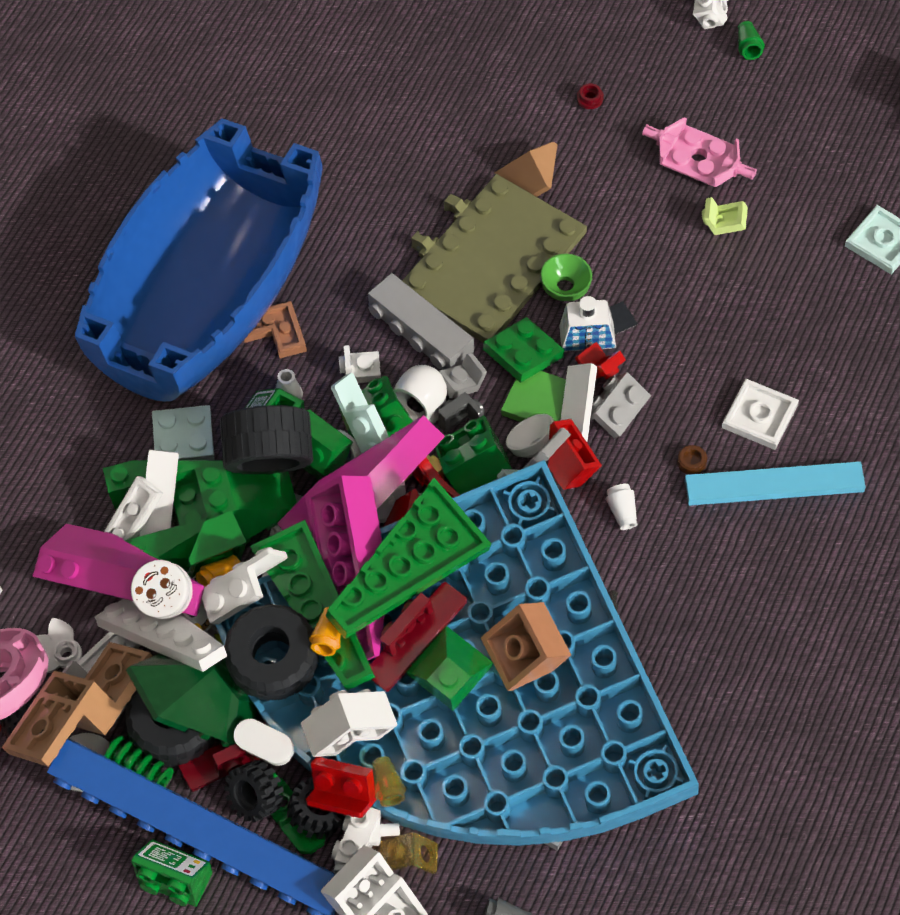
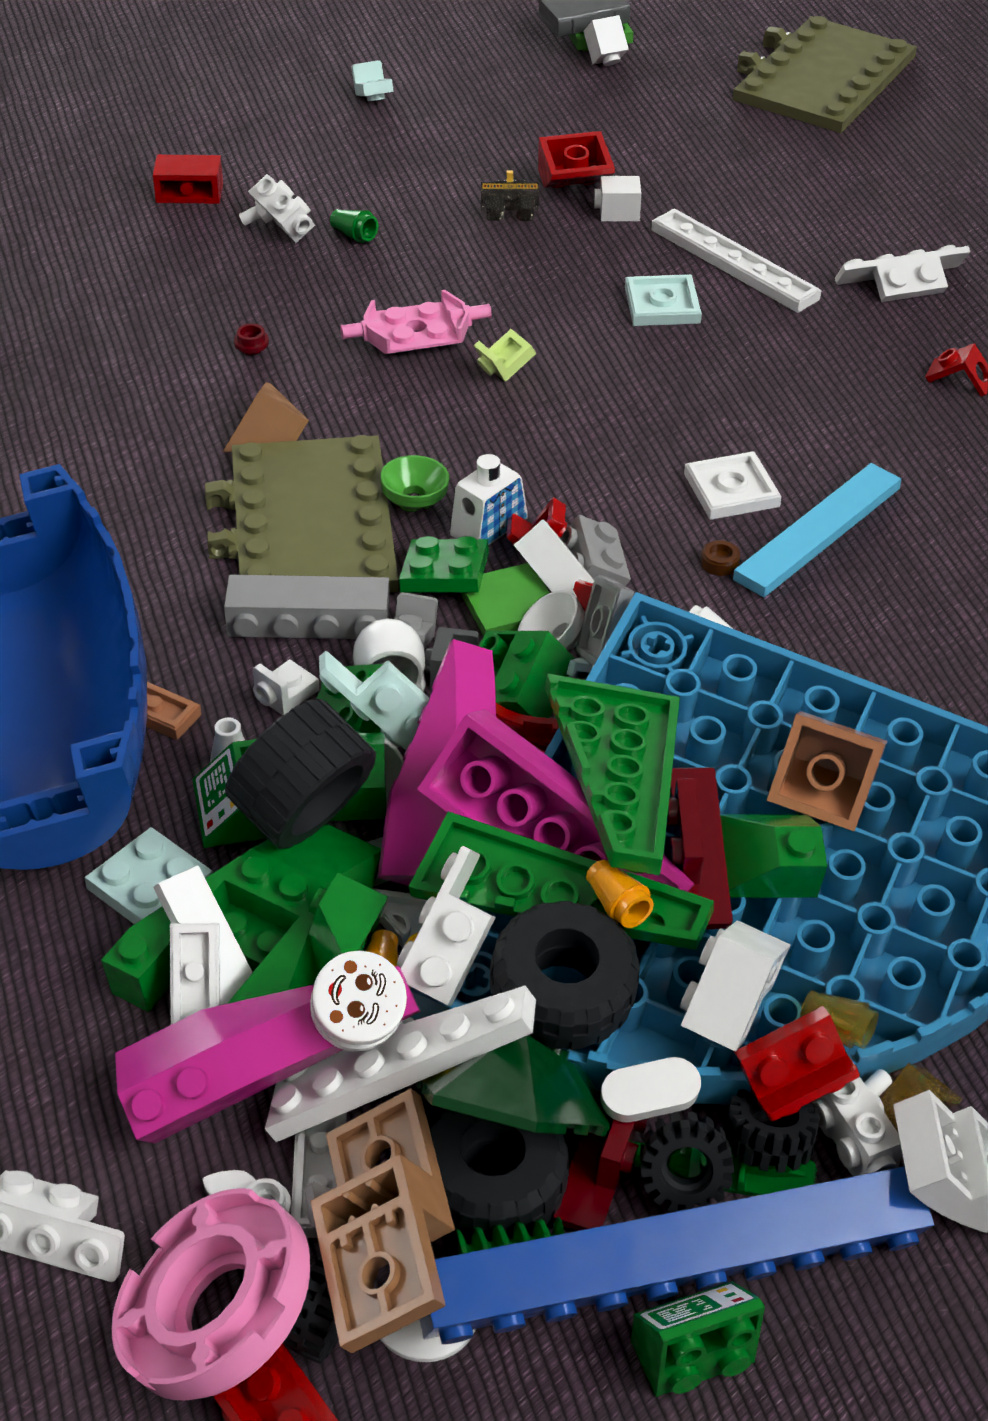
camera: 45 degrees left, 15 degrees down
(881, 91) = (509, 195): none -> clear smoke hips

